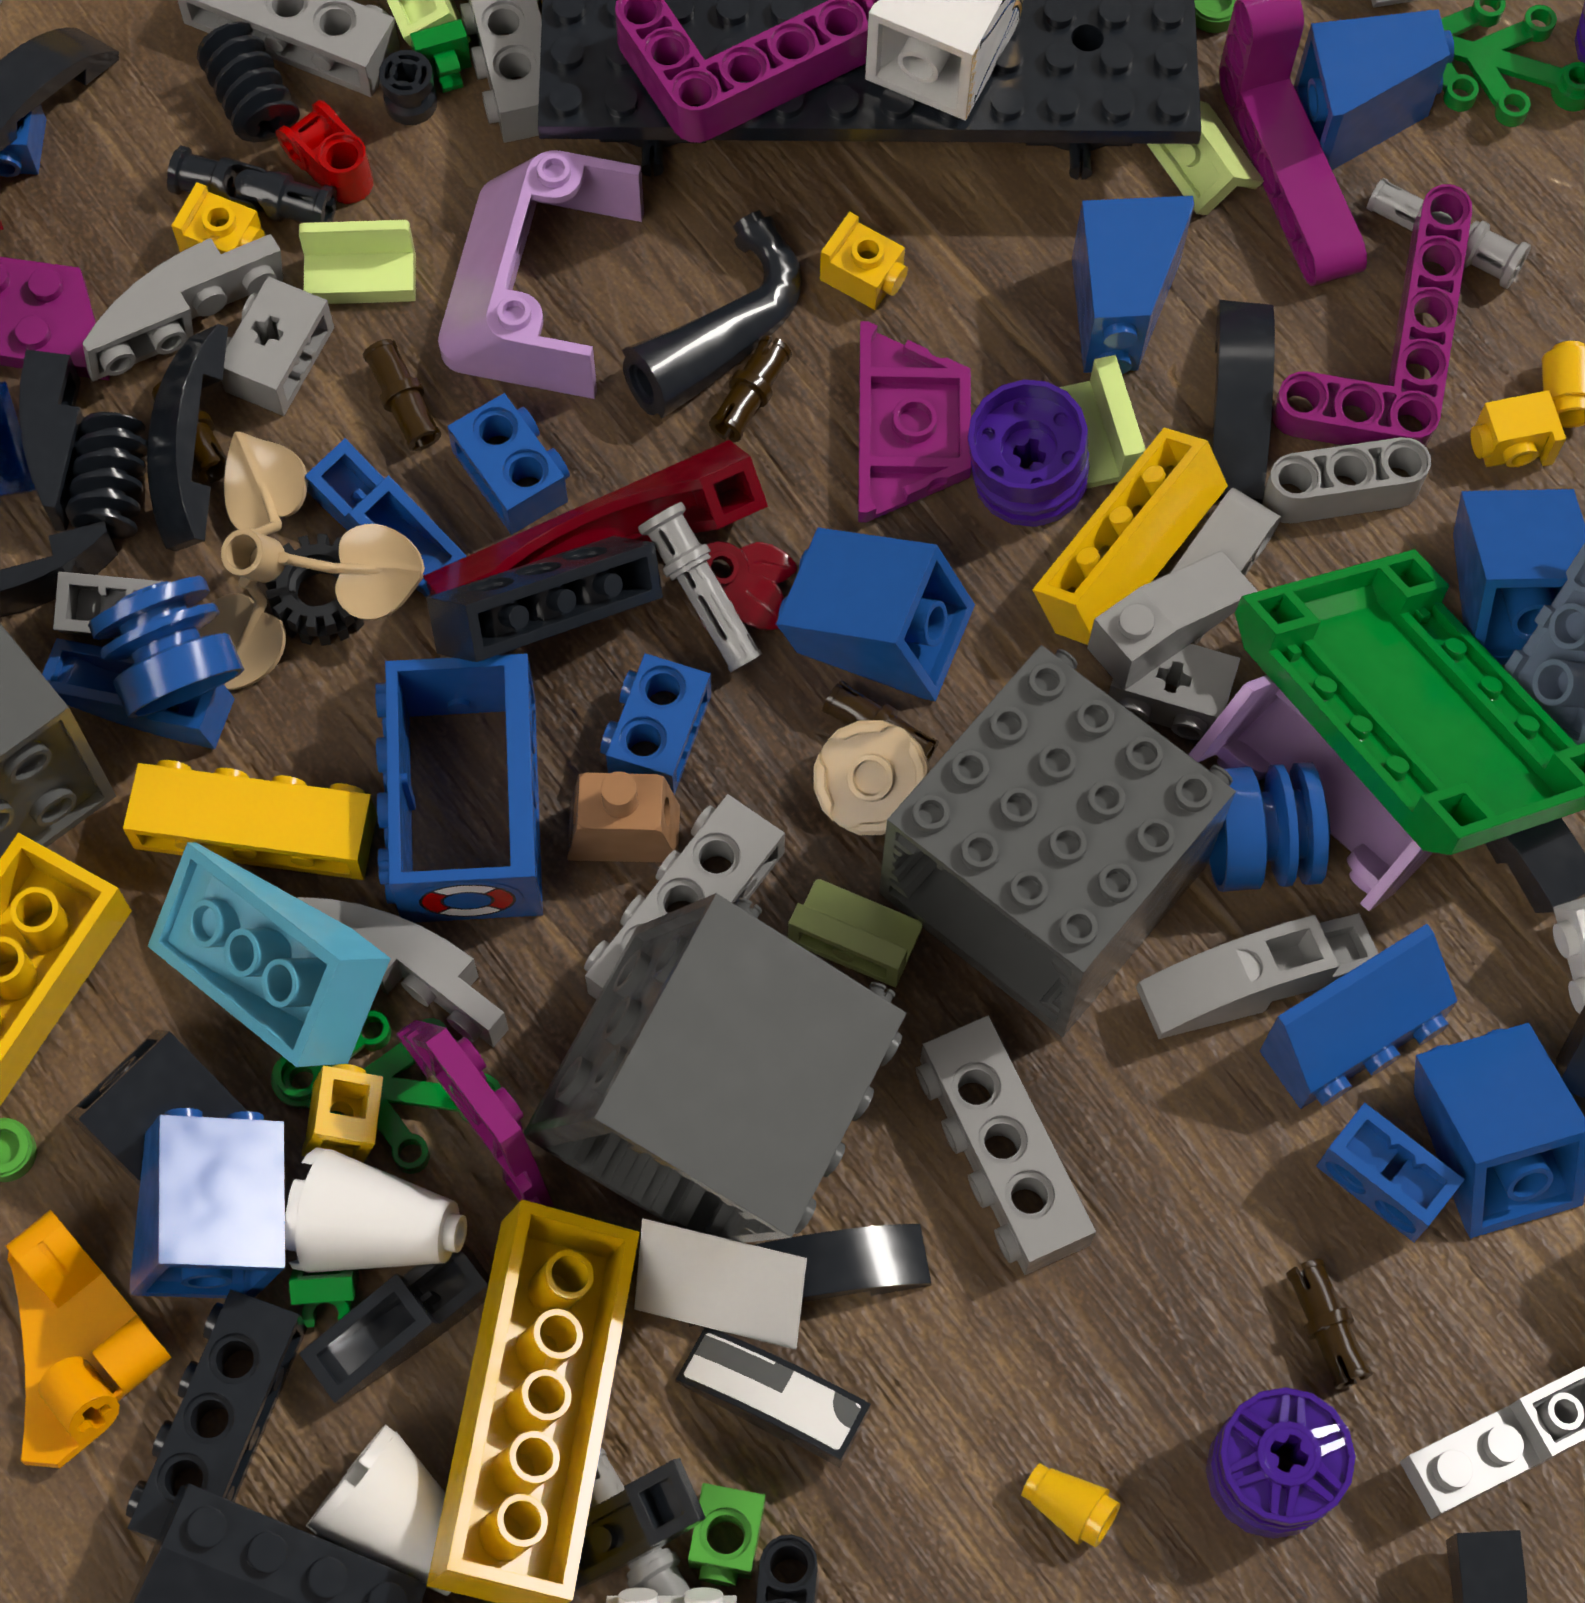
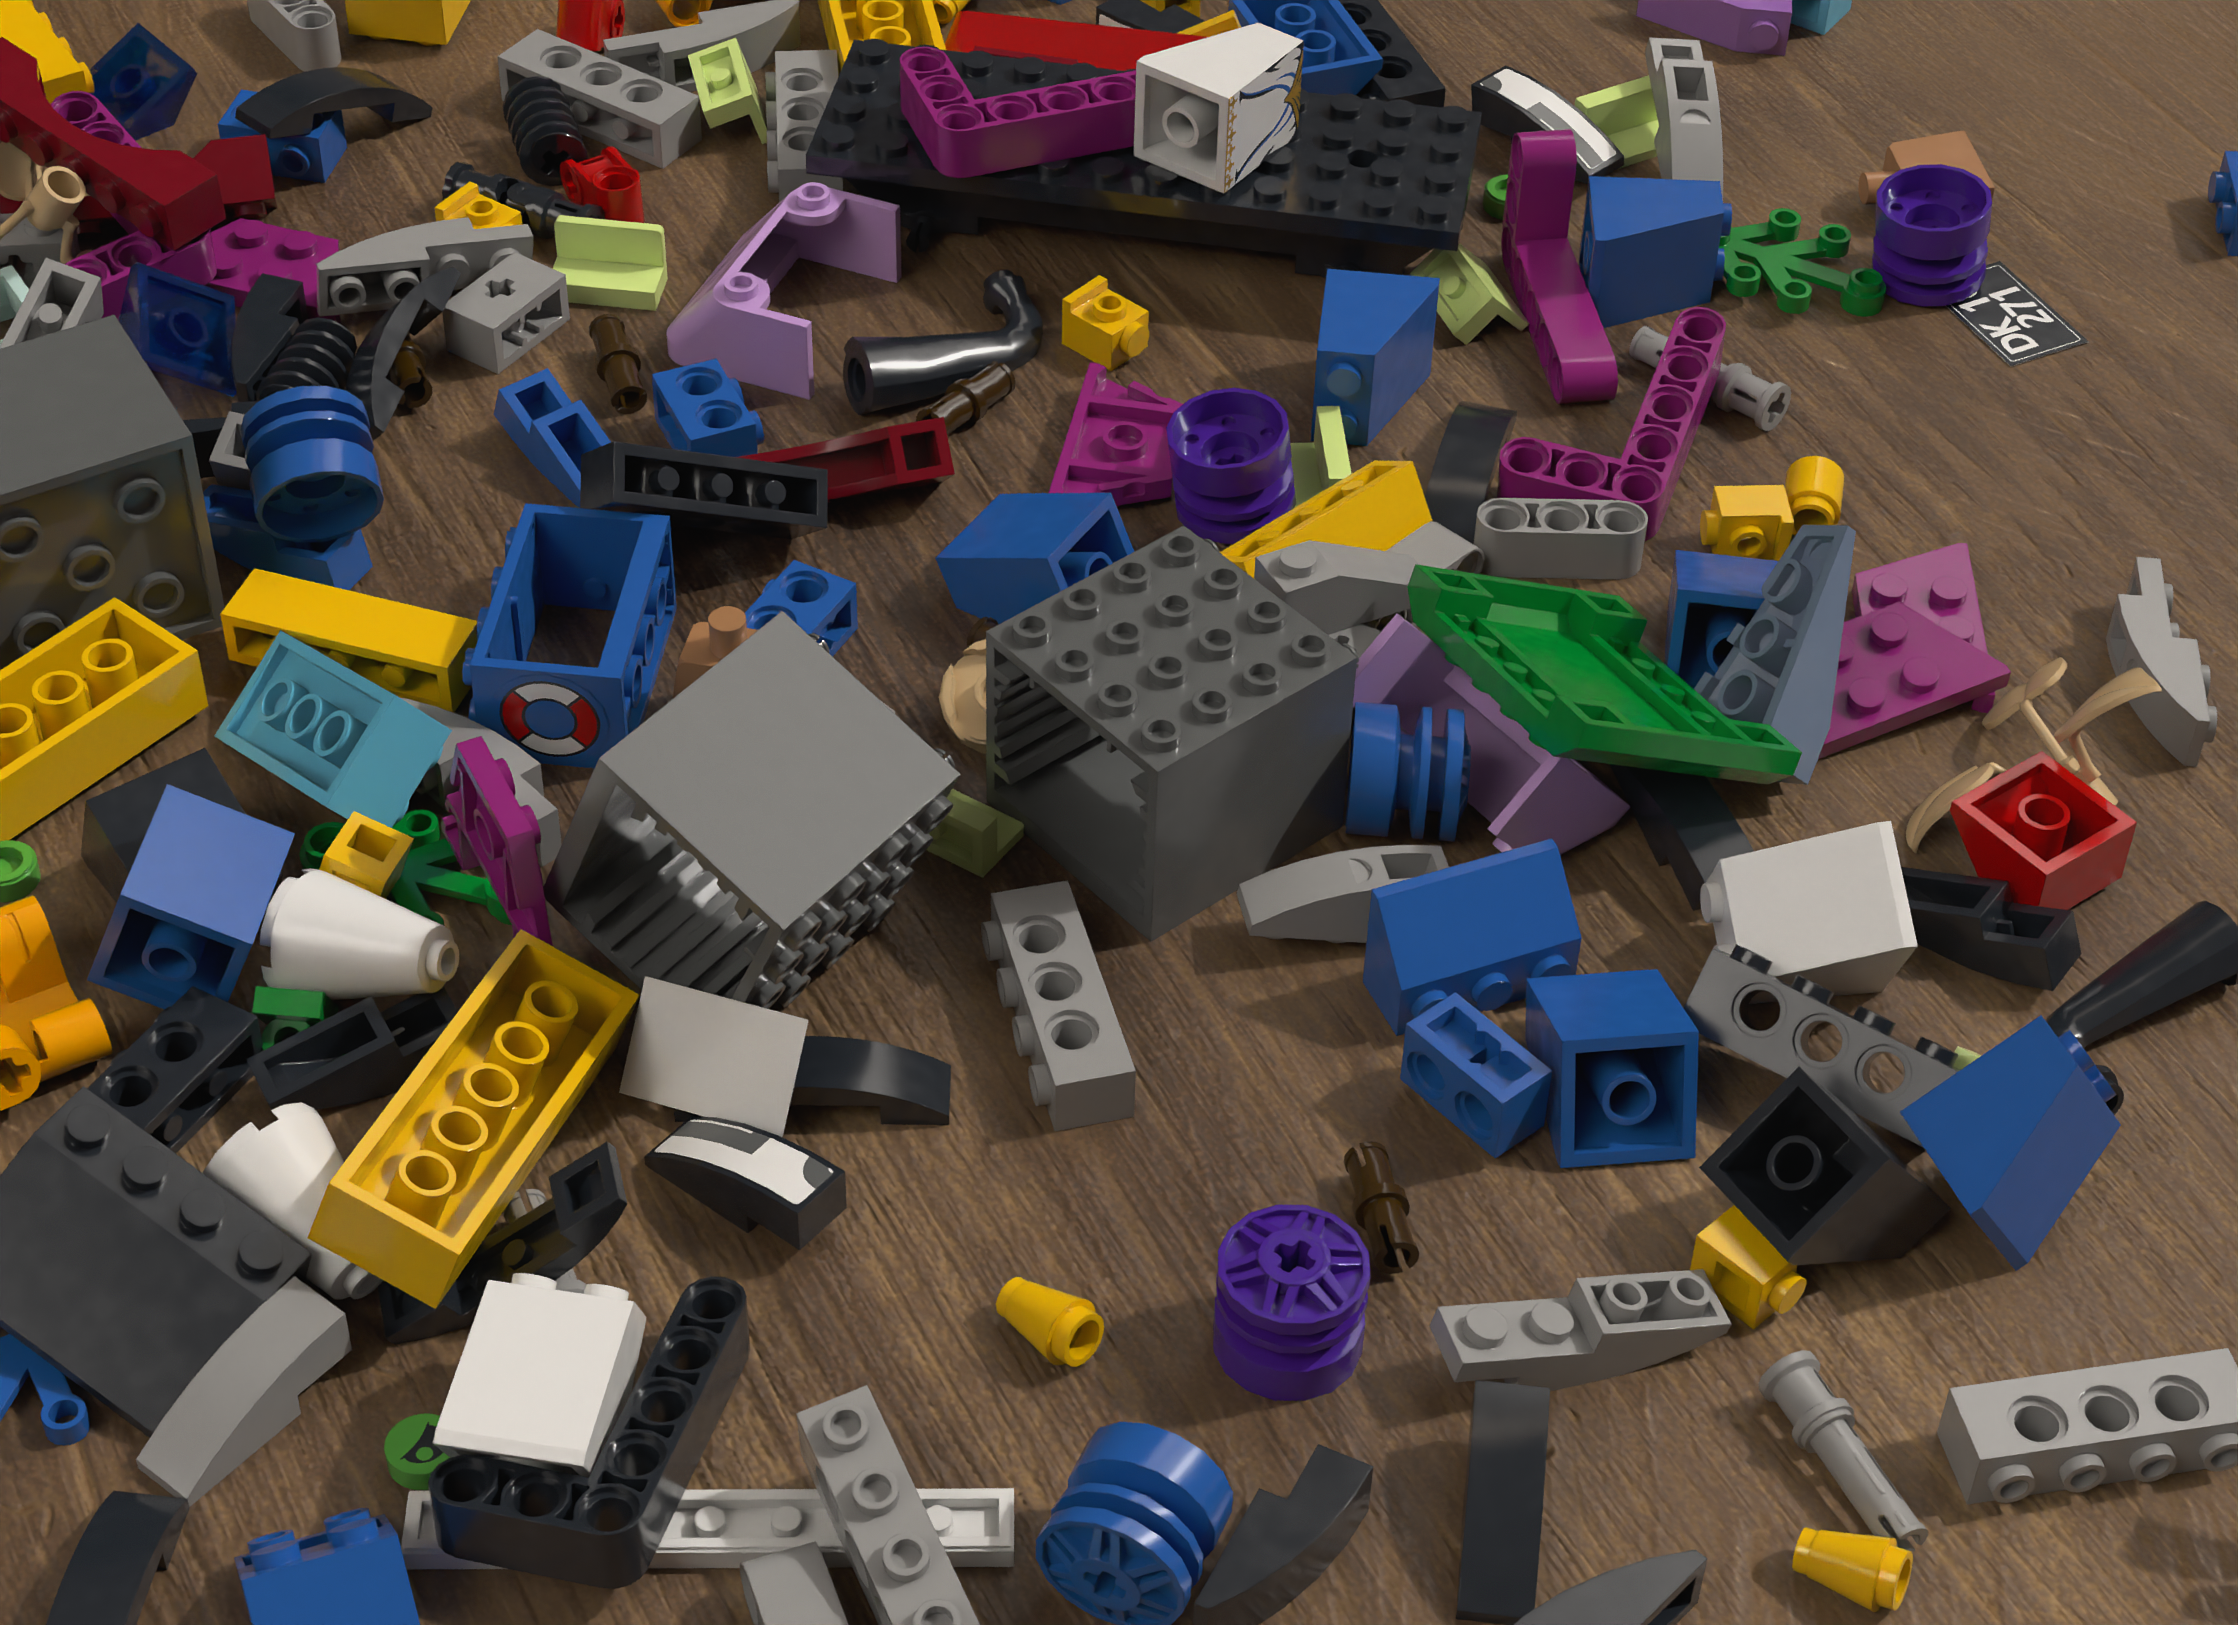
camera: 10 degrees right, 25 degrees down
(261, 486) = (447, 407): tan plant -> none
(298, 616) = (483, 488): black tyre -> none
(408, 87) = (697, 146): black wheel -> none
(446, 50) = (738, 135): green tile -> none
(687, 562) = (860, 502): light grey pin -> none
(732, 1506) = (657, 1269): bright green brick -> none
(754, 580) = (907, 547): dark red plate -> none

